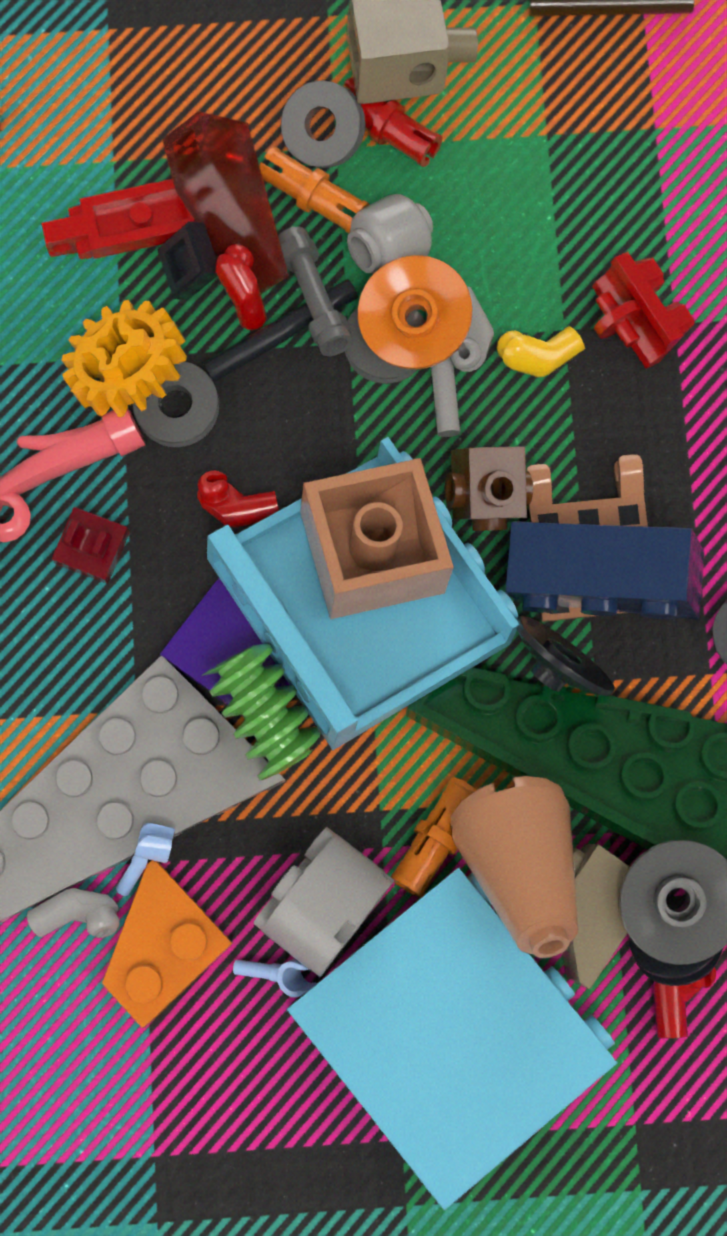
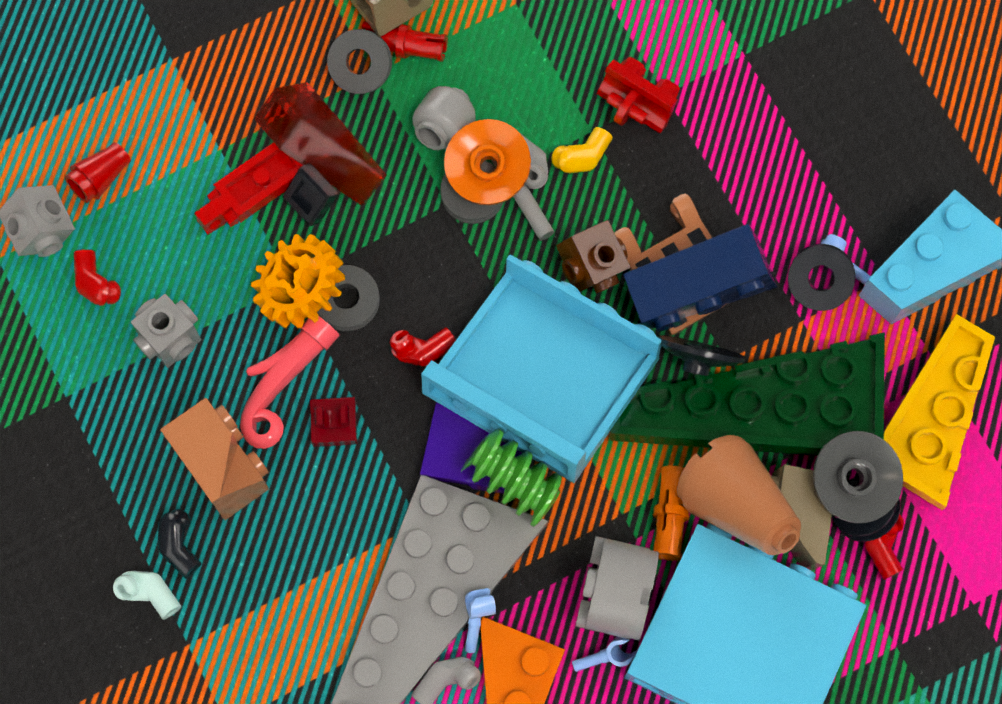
camera: 25 degrees left, 5 degrees down
(241, 285) = (357, 195): red arm -> none
(273, 334) = (396, 215): black bar -> none
(311, 188) = (373, 109): orange pin -> none
(328, 326) = (431, 197): dark grey bar -> none
(375, 538) = (537, 325): nougat slope -> none

